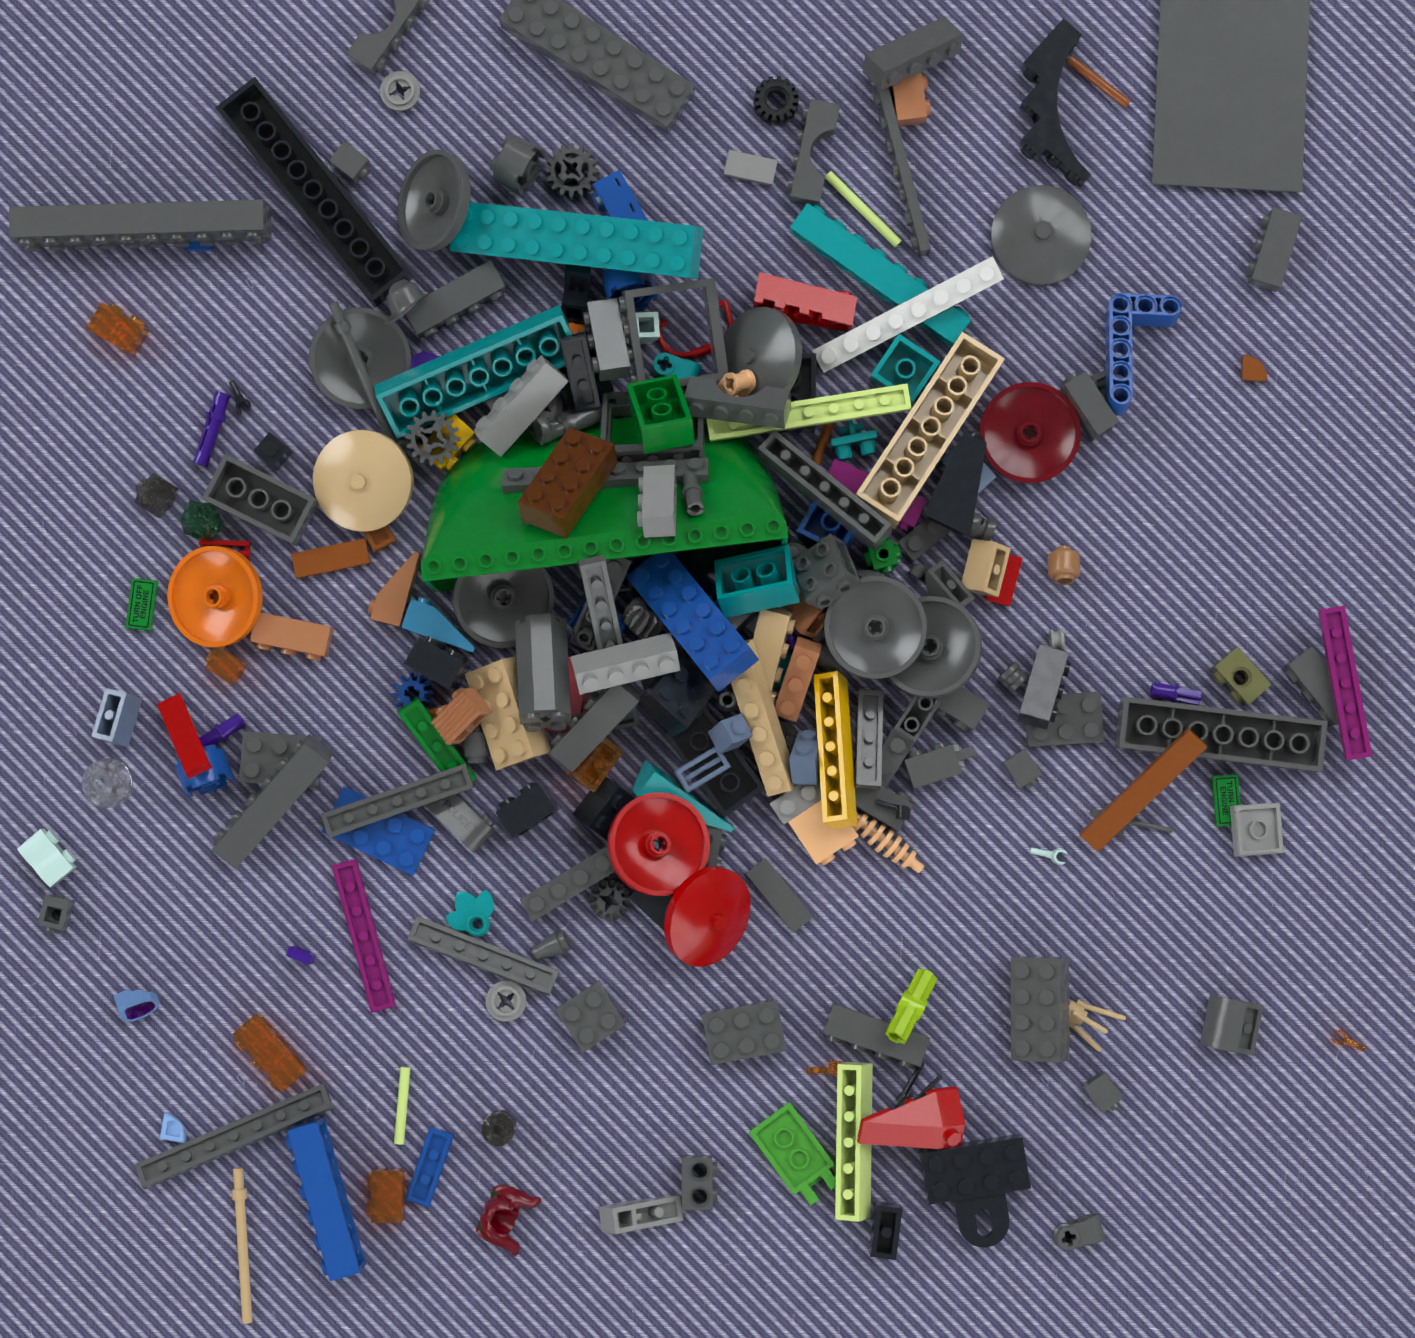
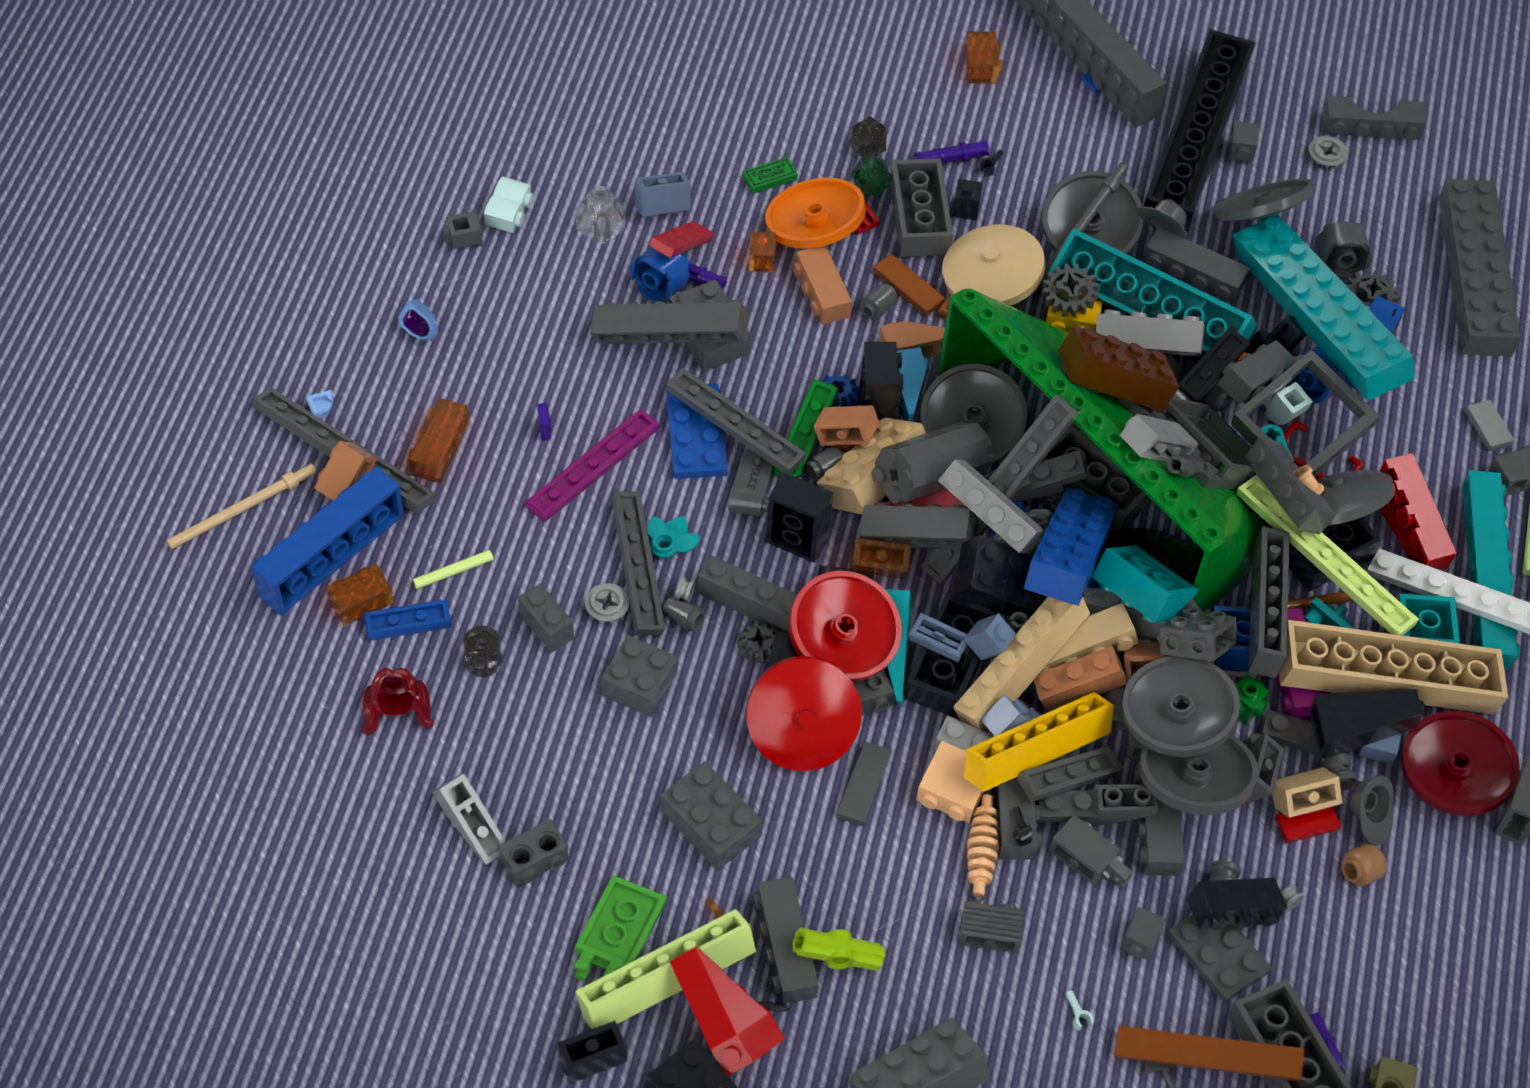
camera: 55 degrees right, 30 degrees down
(266, 1150) = (343, 469): none -> nougat brick
(336, 598) = (878, 301): none -> dark grey brick
(495, 1060) = (545, 618): none -> dark grey brick
(531, 932) = (685, 589): none -> light grey bush
(660, 413) = (1229, 424): green brick -> none
(951, 876) = (991, 926): none -> dark grey brick
(1026, 525) = (1372, 805): none -> dark grey piece

